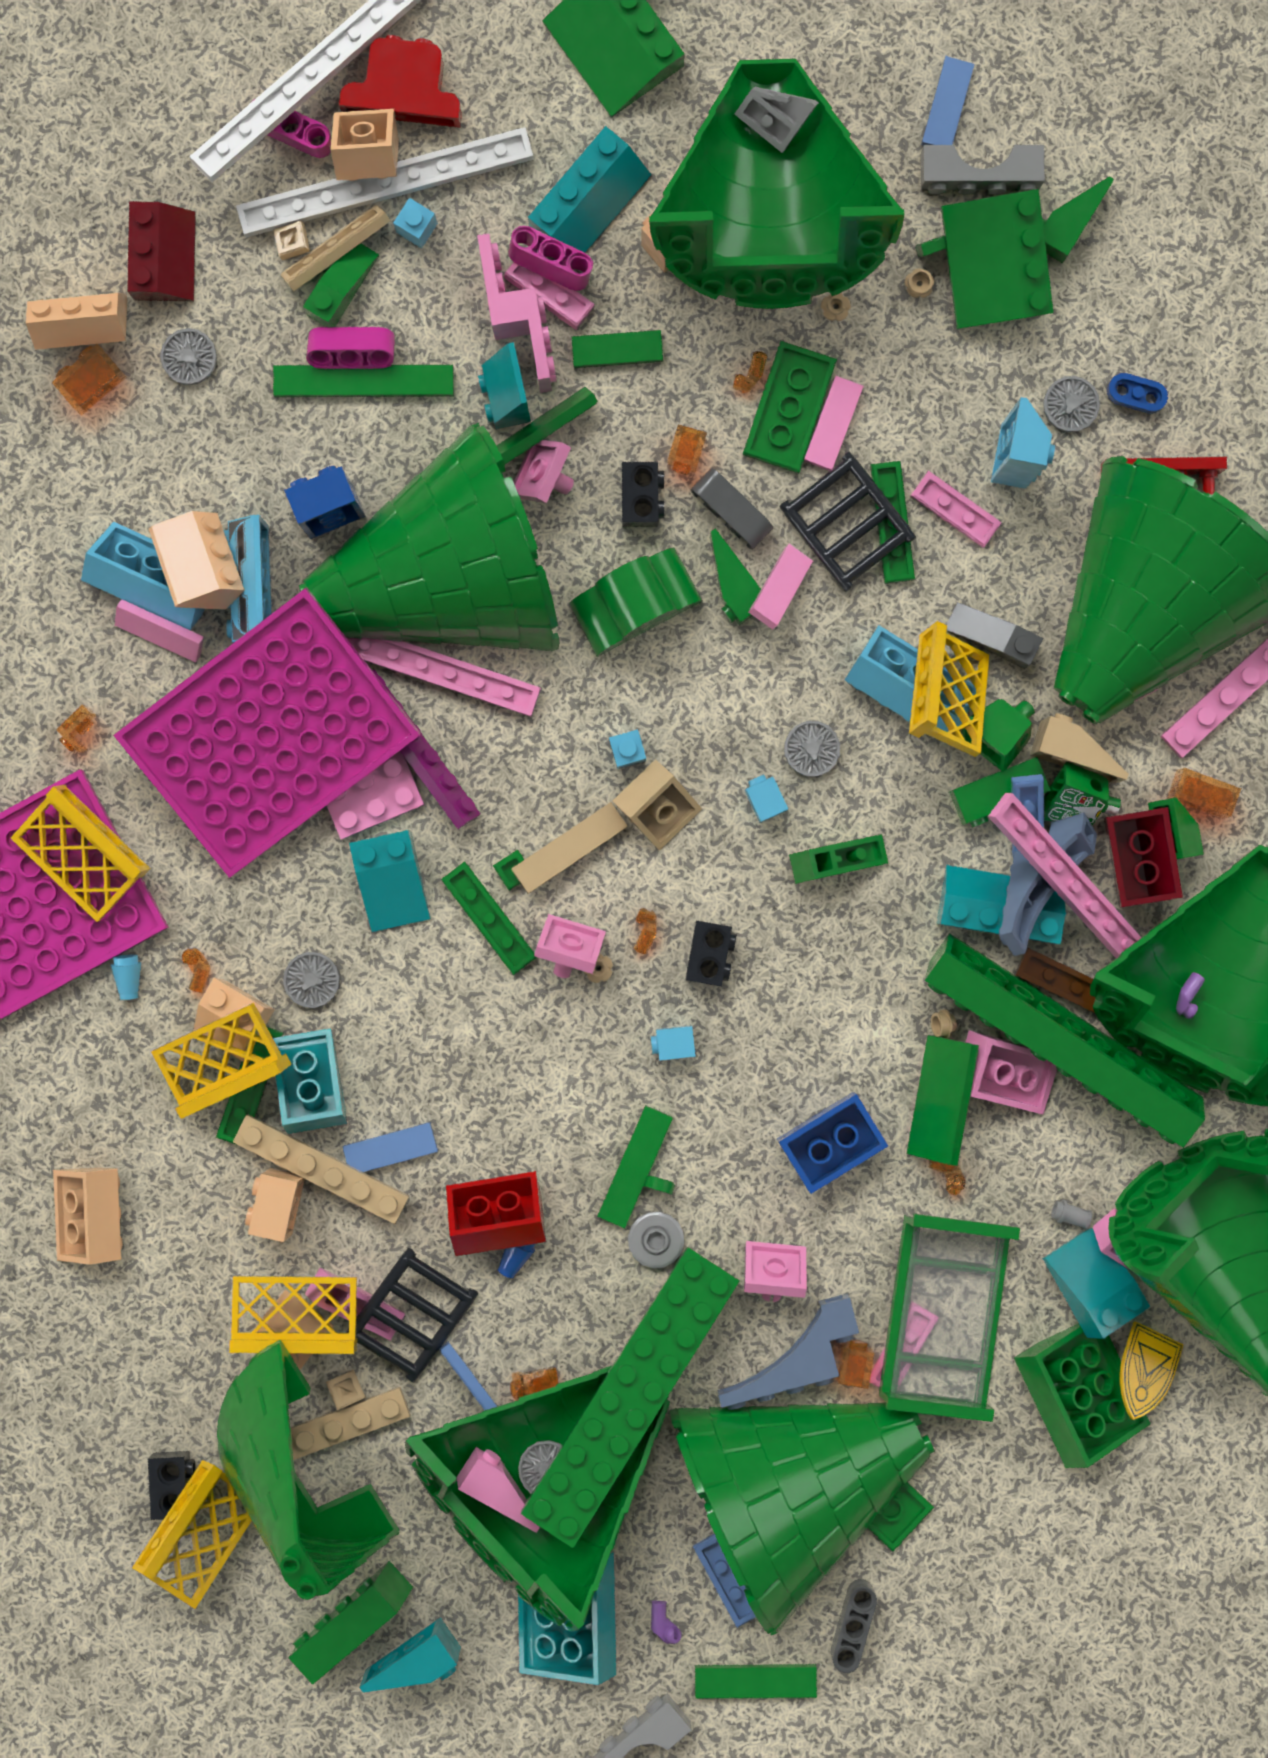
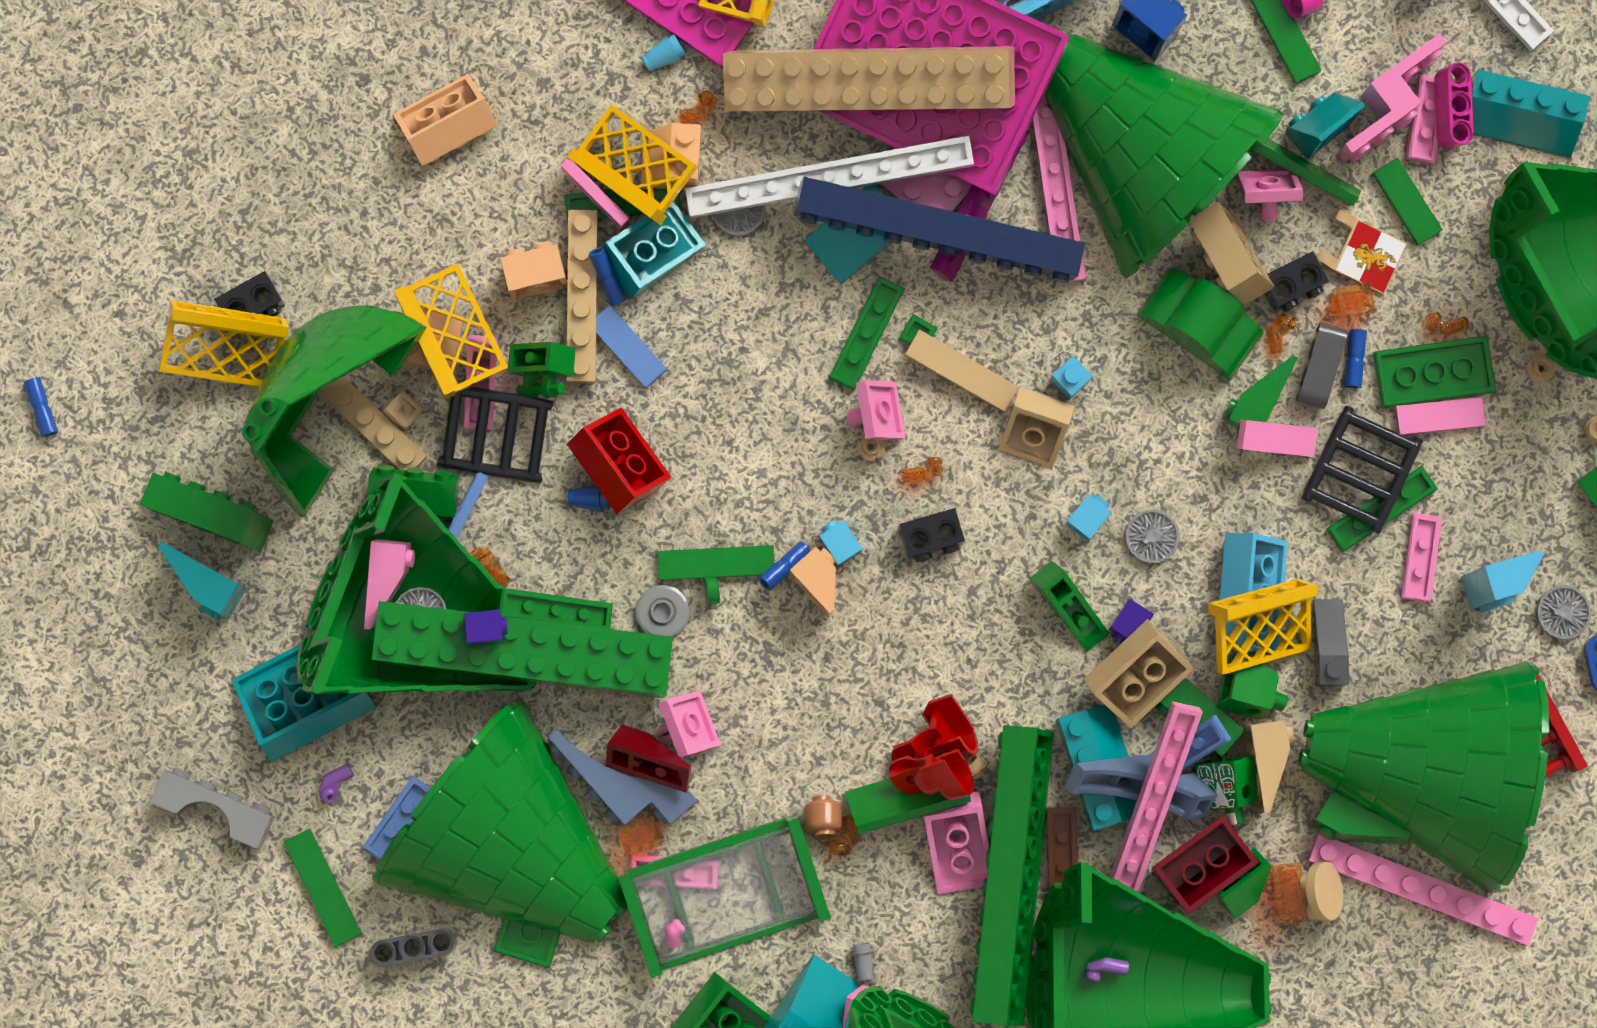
camera: 60 degrees right, 5 degrees down
(175, 1729) = (40, 405): none -> blue piece
(230, 1109) = (595, 194): none -> bright pink tile
(250, 797) = (869, 79): none -> tan brick
(308, 1136) = (606, 273): none -> blue piece
(325, 880) = (849, 172): none -> white plate
(366, 1237) = (542, 361): none -> green brick
(427, 804) = (938, 229): none -> dark blue brick
(436, 1404) = (436, 489): none -> green brick
(587, 541) = (1230, 254): none -> tan brick
(596, 1428) = (484, 627): none -> dark purple brick
(605, 1343) = (554, 608): none -> green tile
(648, 412) = (1366, 254): none -> flag
(671, 1108) = (781, 568): none -> blue piece
(677, 531) = (1277, 330): none -> clear orange arm
(698, 1082) = (816, 577): none -> light nougat slope
(738, 472) = (1355, 362): none -> blue piece
(785, 1327) = (647, 758): none -> dark red slope
(832, 1142) = (822, 719): blue brick -> none
(883, 810) = (1128, 620): none -> dark purple brick
(922, 1187) = (822, 818): none -> nougat head
(937, 828) = (1139, 673): none -> tan brick
(943, 1059) = (917, 762): none -> red piece
(963, 1381) = (672, 933): none -> bright pink arm
(1167, 703) = (1353, 823): none -> green slope
(1220, 760) = (1323, 891): none -> tan tile

